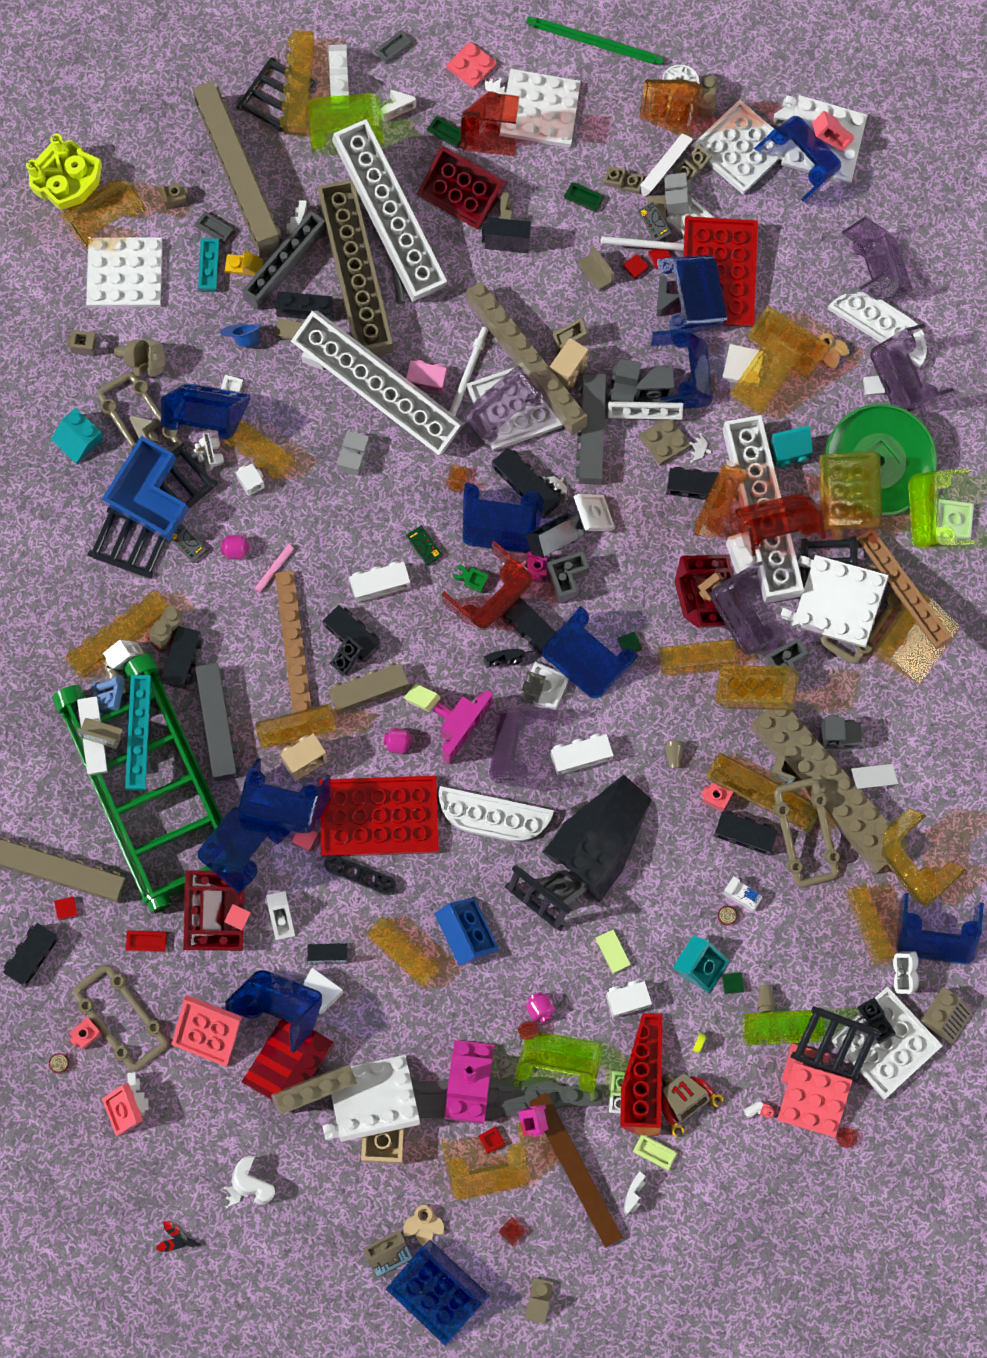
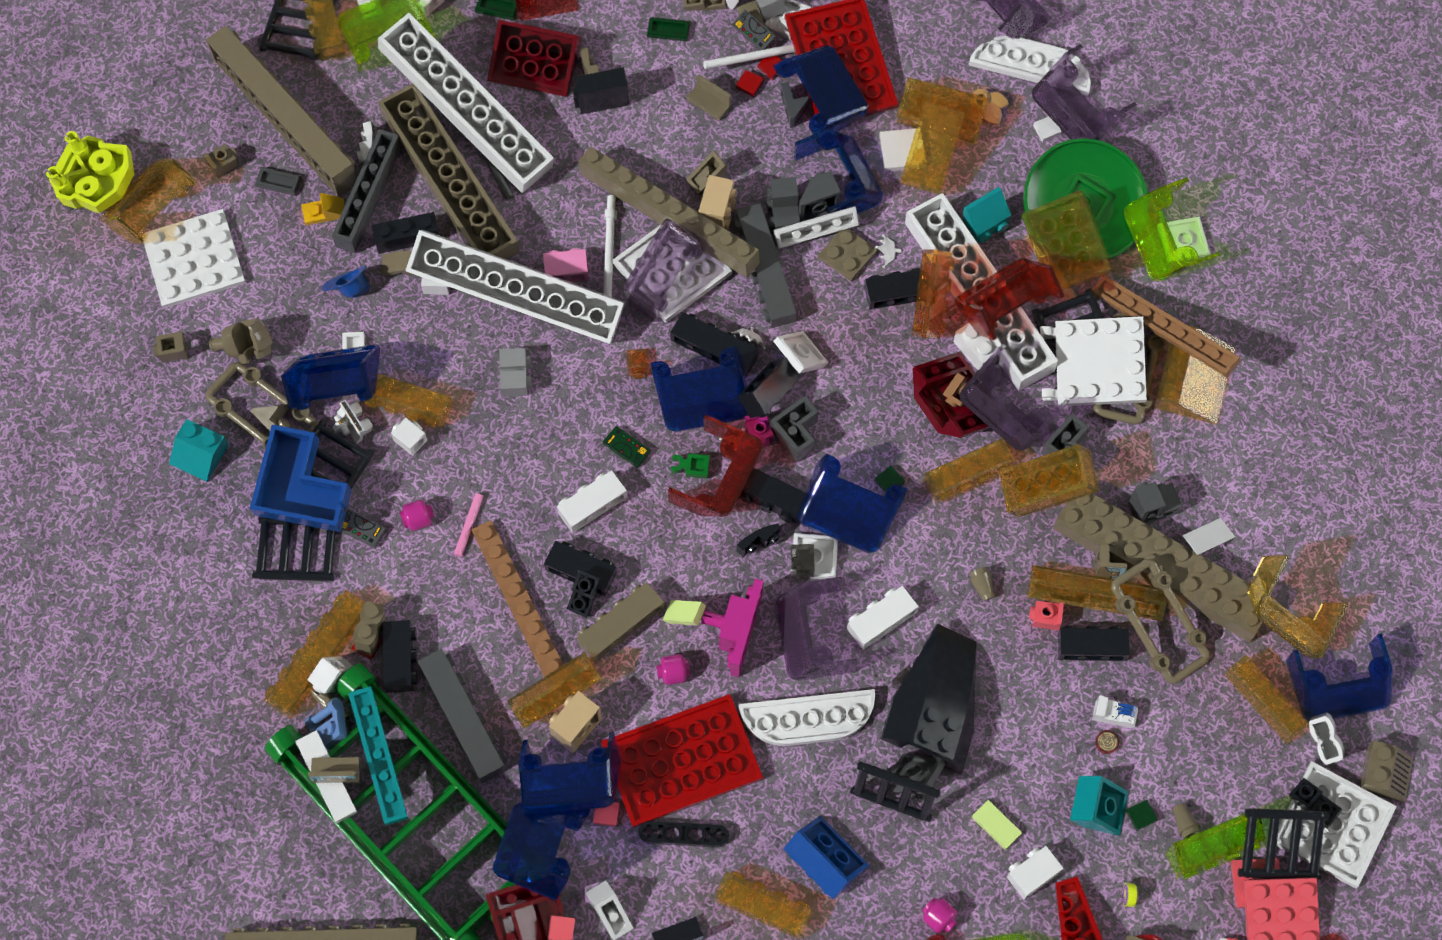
camera: 15 degrees left, 5 degrees down
(208, 264) = (284, 222): teal plate -> none

